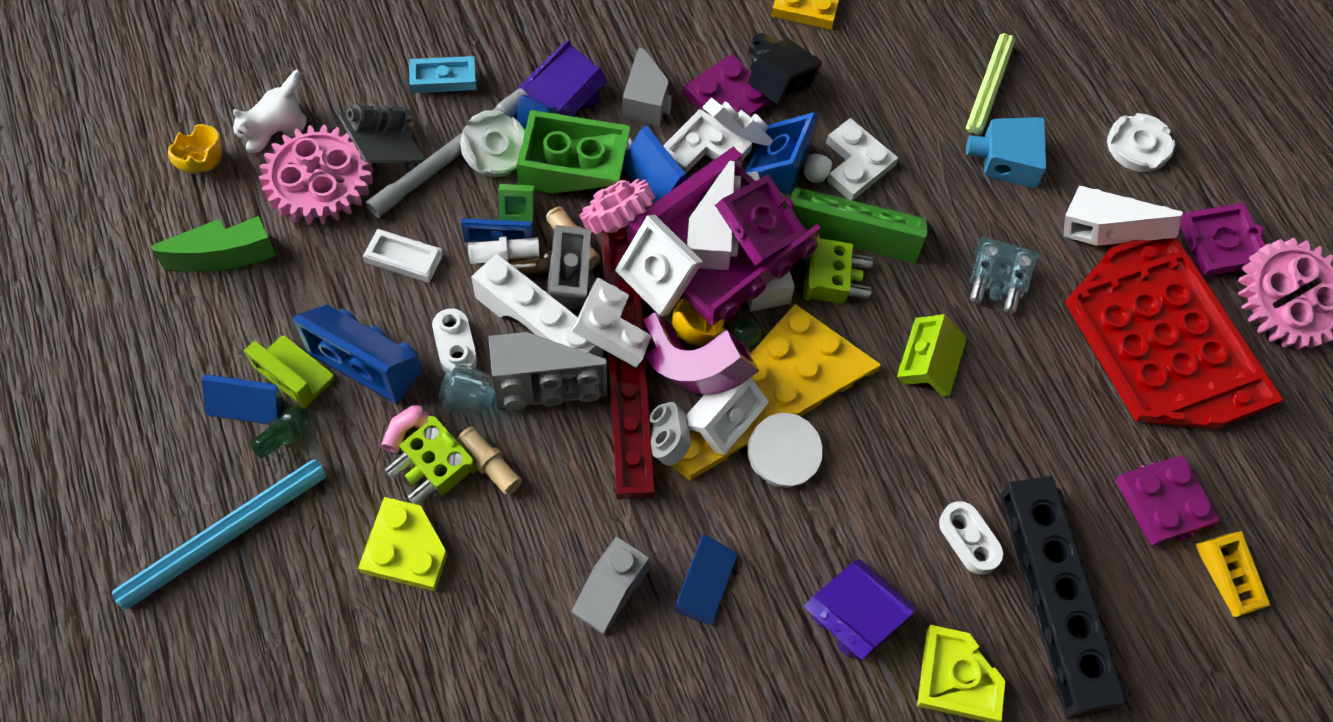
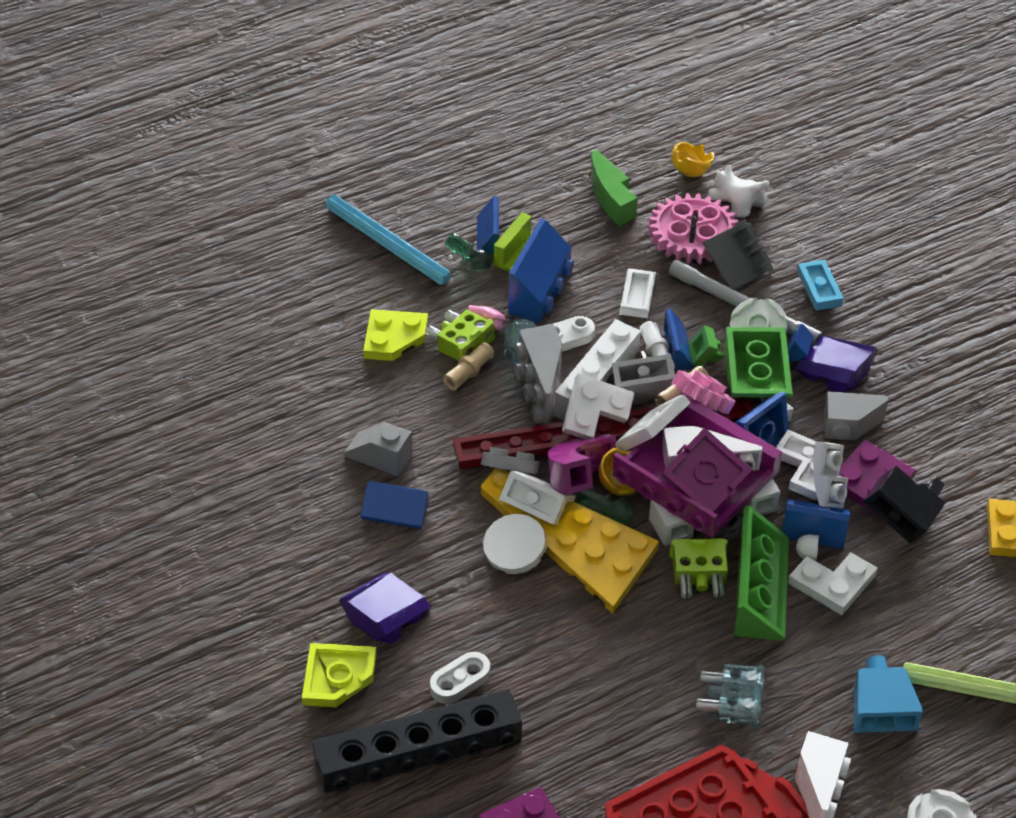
camera: 85 degrees right, 15 degrees down
(932, 353) = (633, 647): lime panel -> none

